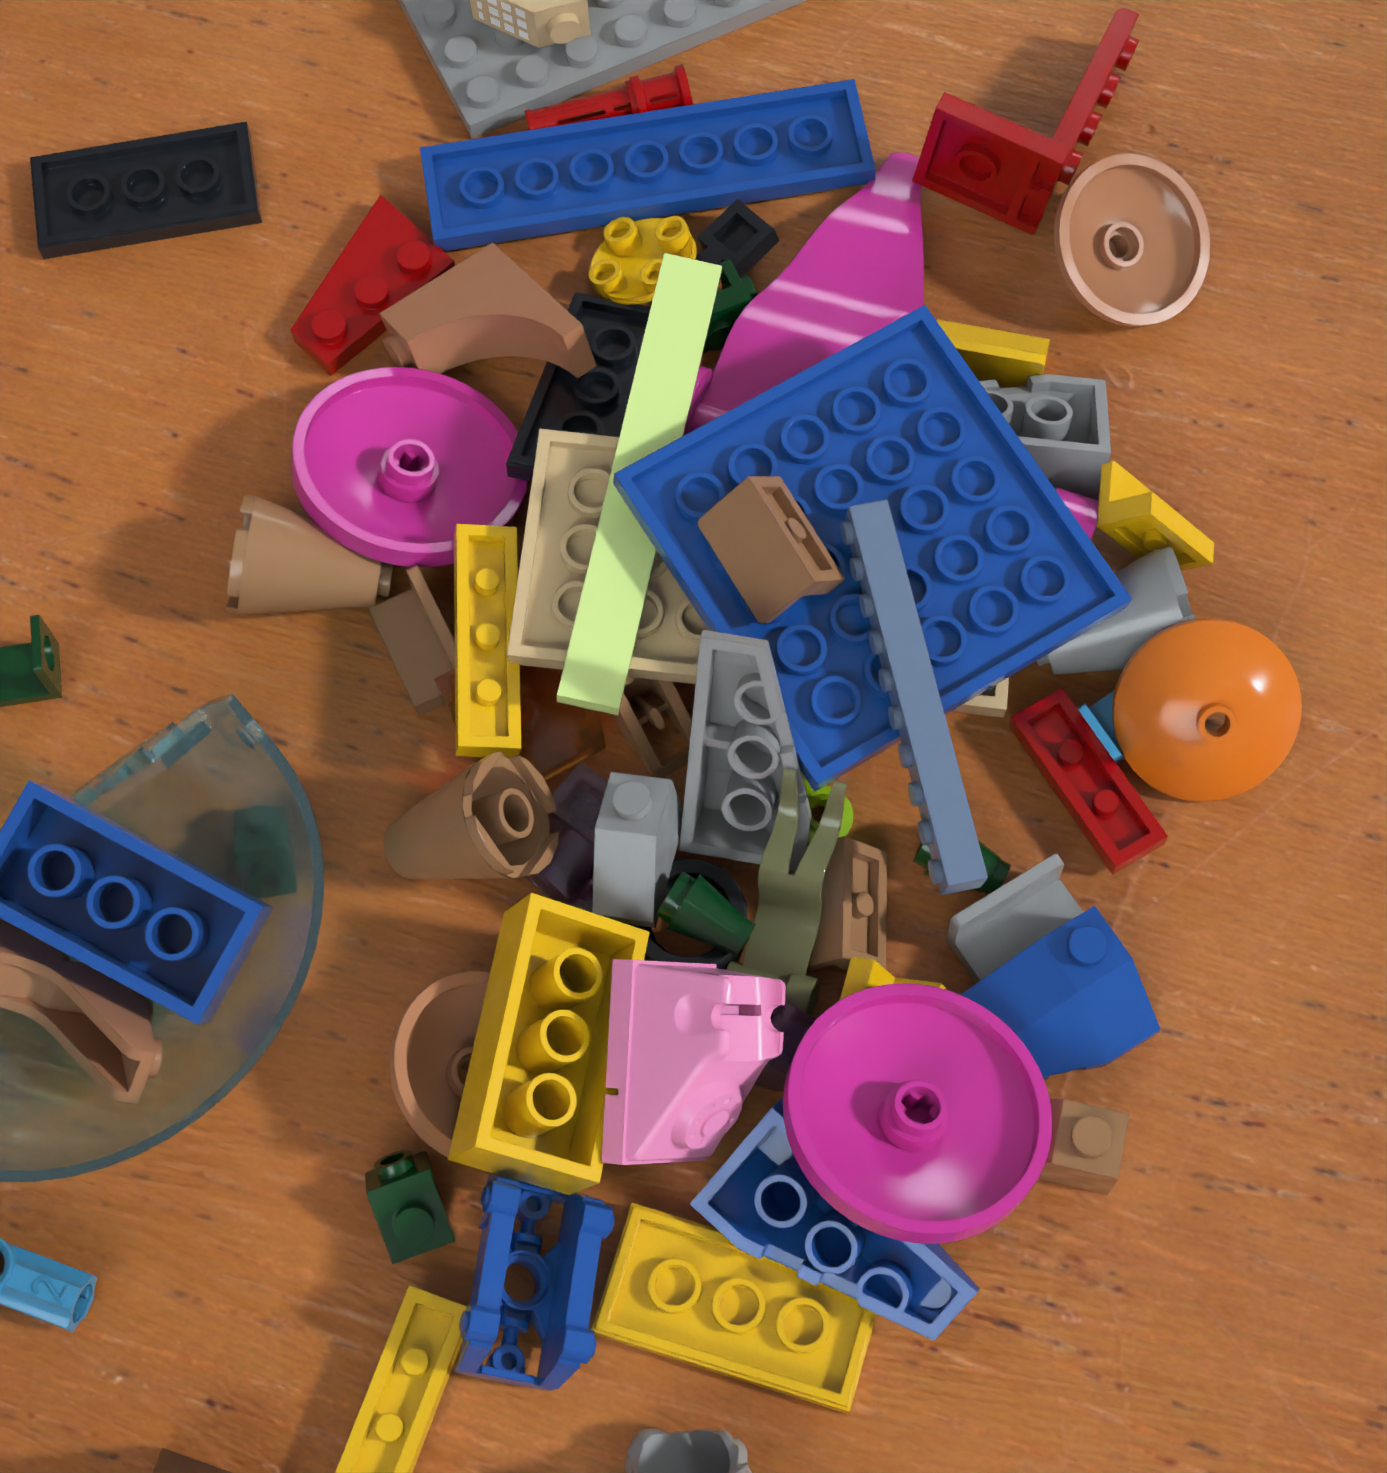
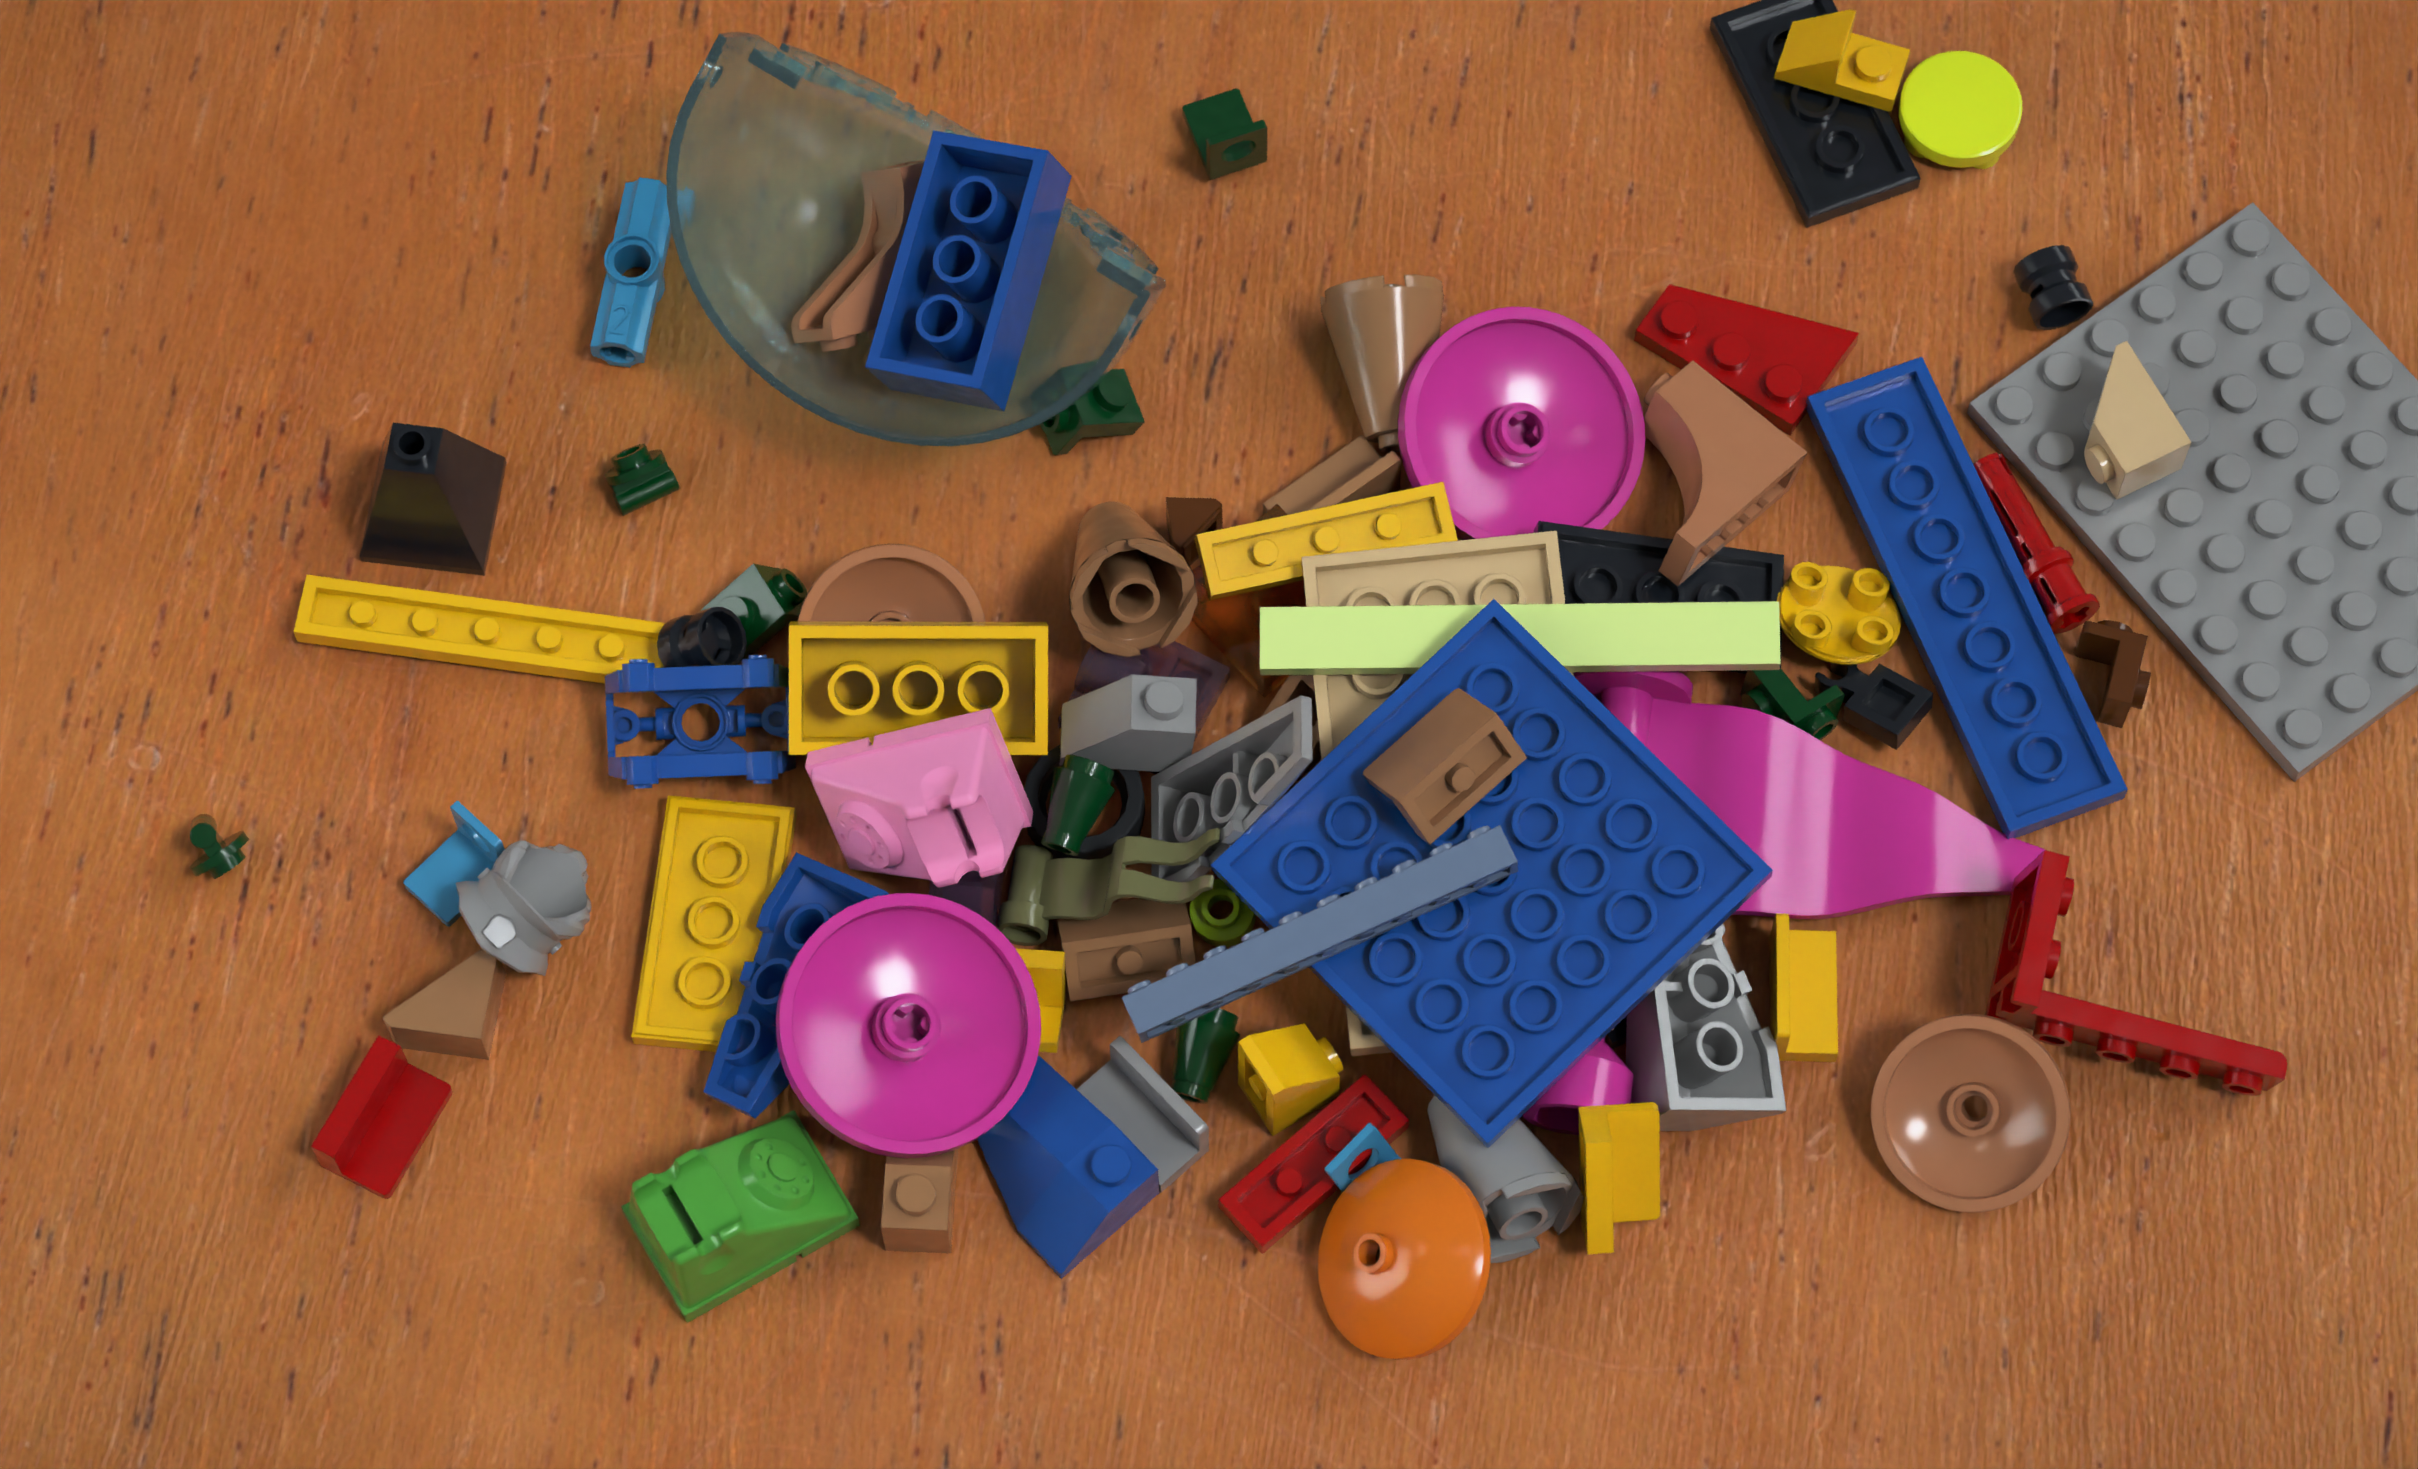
camera: 75 degrees right, 0 degrees up
(117, 150) = (1833, 60): none -> yellow slope
(191, 79) = (1959, 110): none -> neon yellow tile
(226, 1304) = (640, 478): none -> dark green plate
(380, 43) = (2054, 289): none -> black wheel
(422, 770) = (1188, 518): none -> reddish brown slope
(438, 1272) = (702, 639): none -> black wheel
(743, 63) = (2123, 649): none -> reddish brown bracket
(1007, 782) = (1287, 1074): none -> yellow slope
(1058, 1332) = (737, 1213): none -> bright green piece

